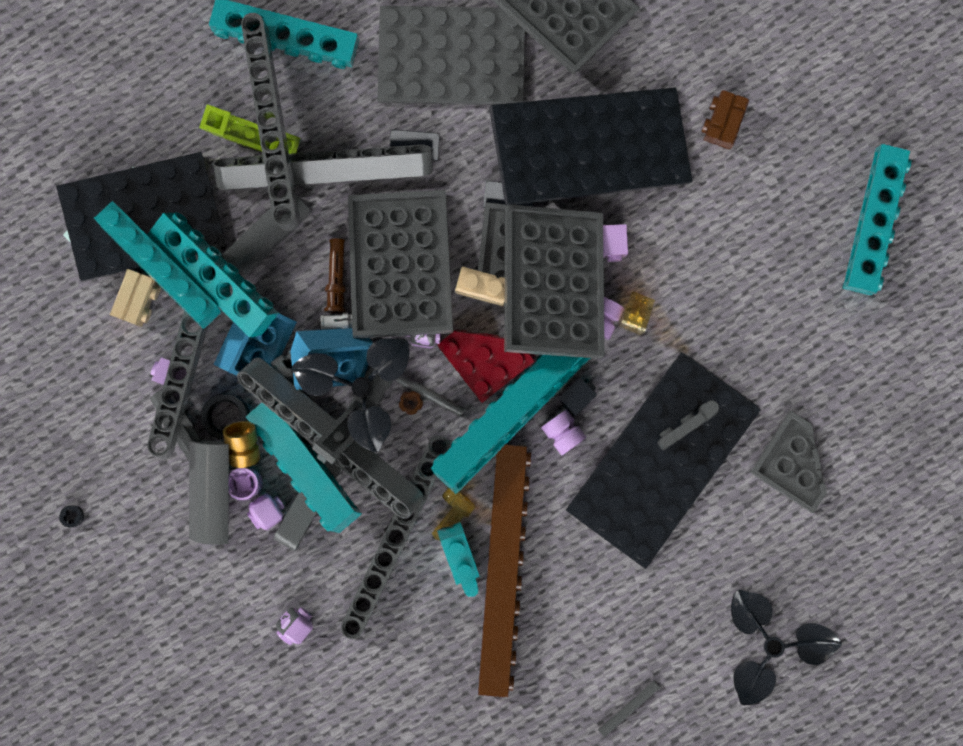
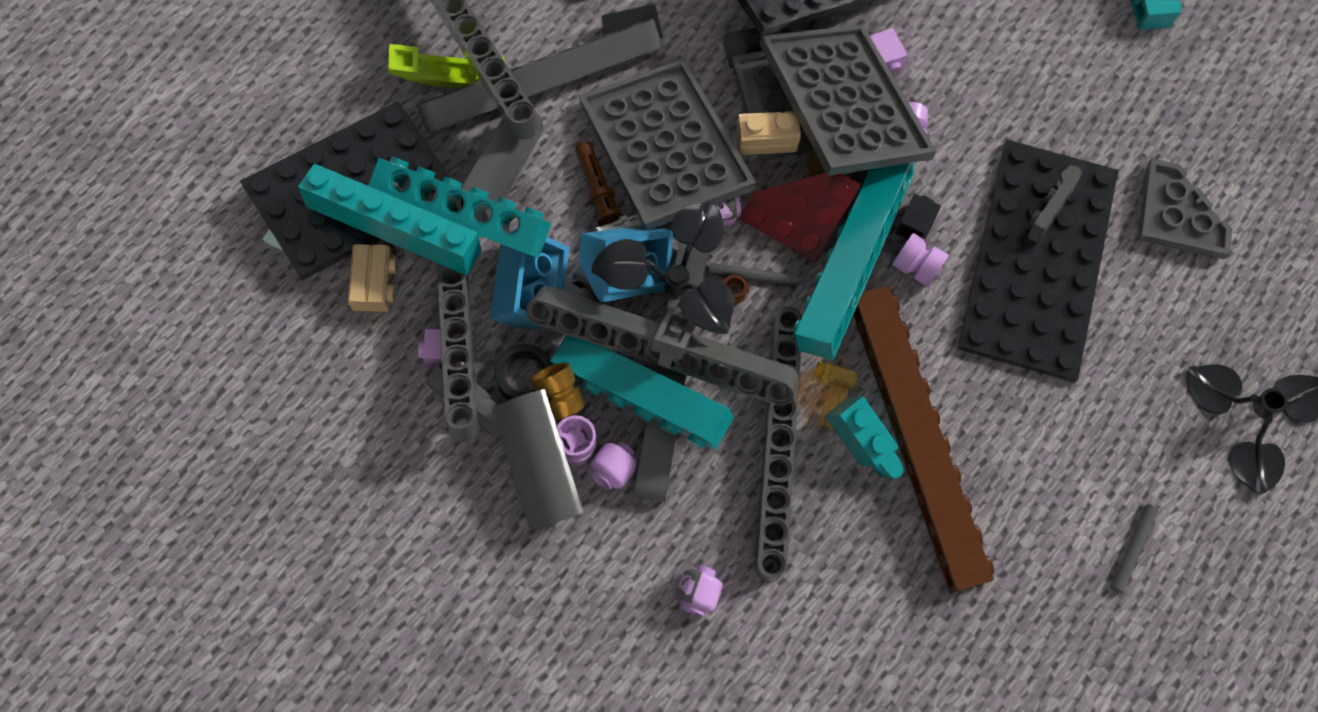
camera: 25 degrees left, 15 degrees down
(65, 512) = (362, 558): black bush -> none
(637, 313) = (943, 119): clear yellow slope -> none

